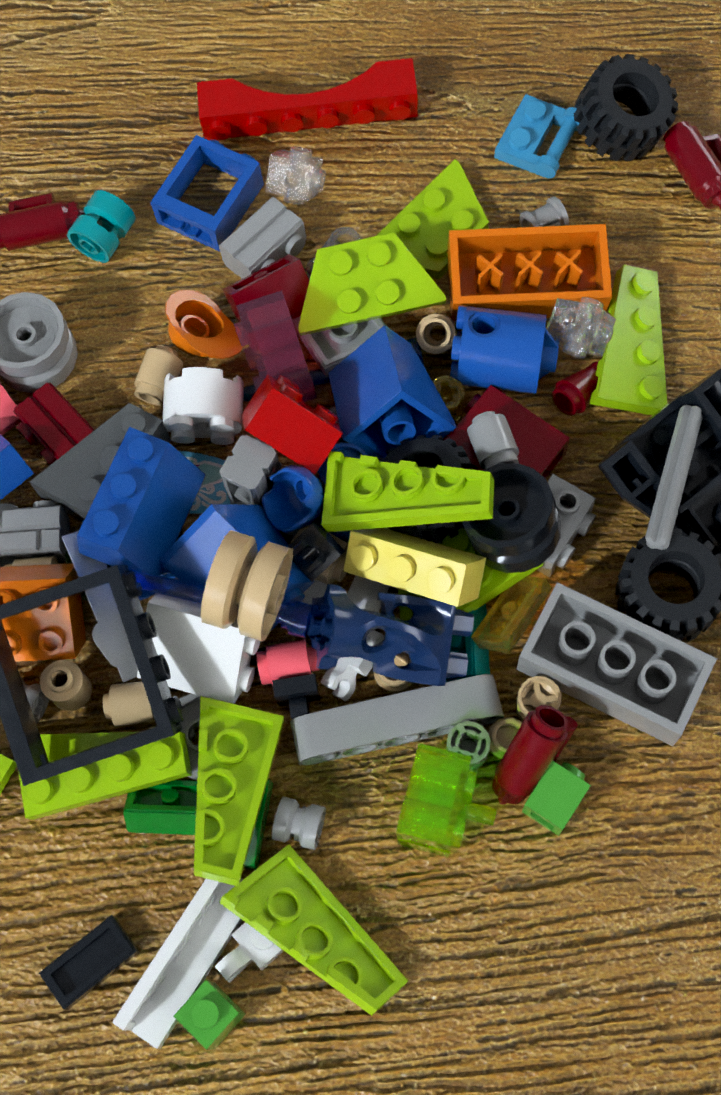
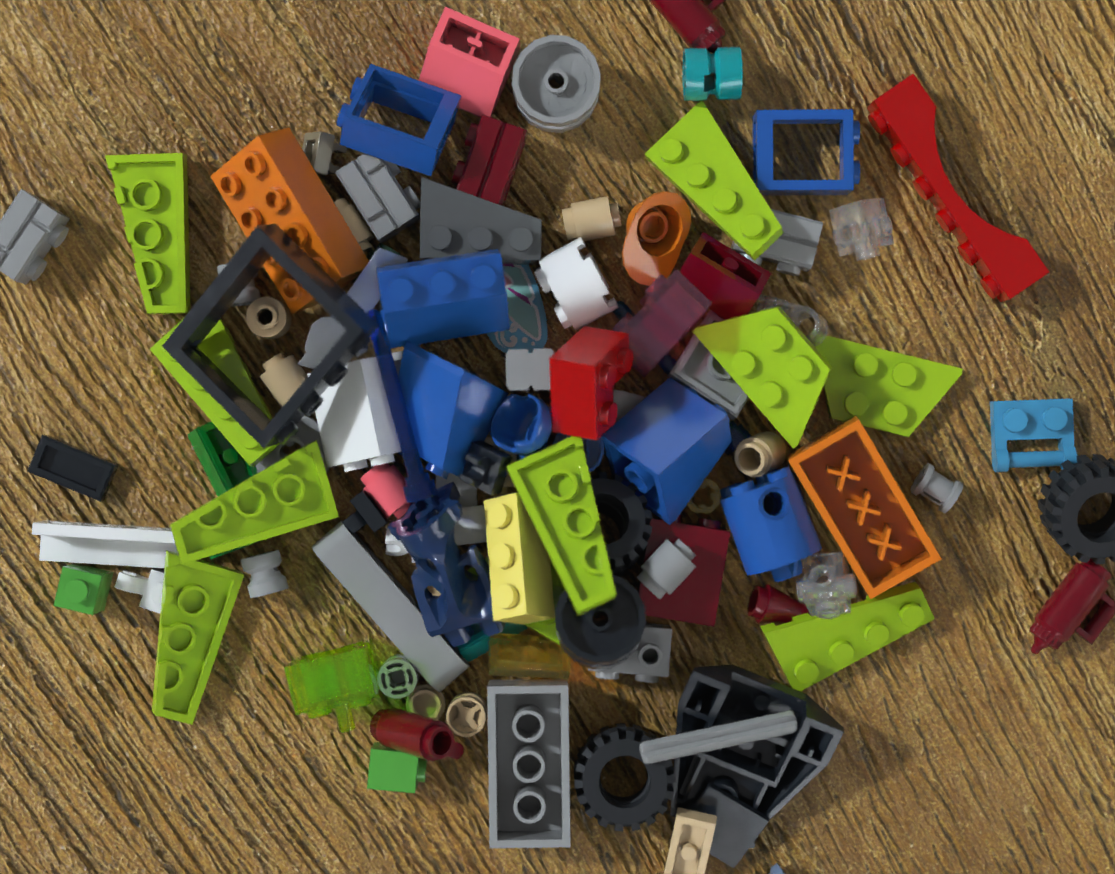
camera: 50 degrees right, 20 degrees up
(188, 259) = (711, 176): none -> lime wing
(246, 585) = (410, 451): tan wheel -> none

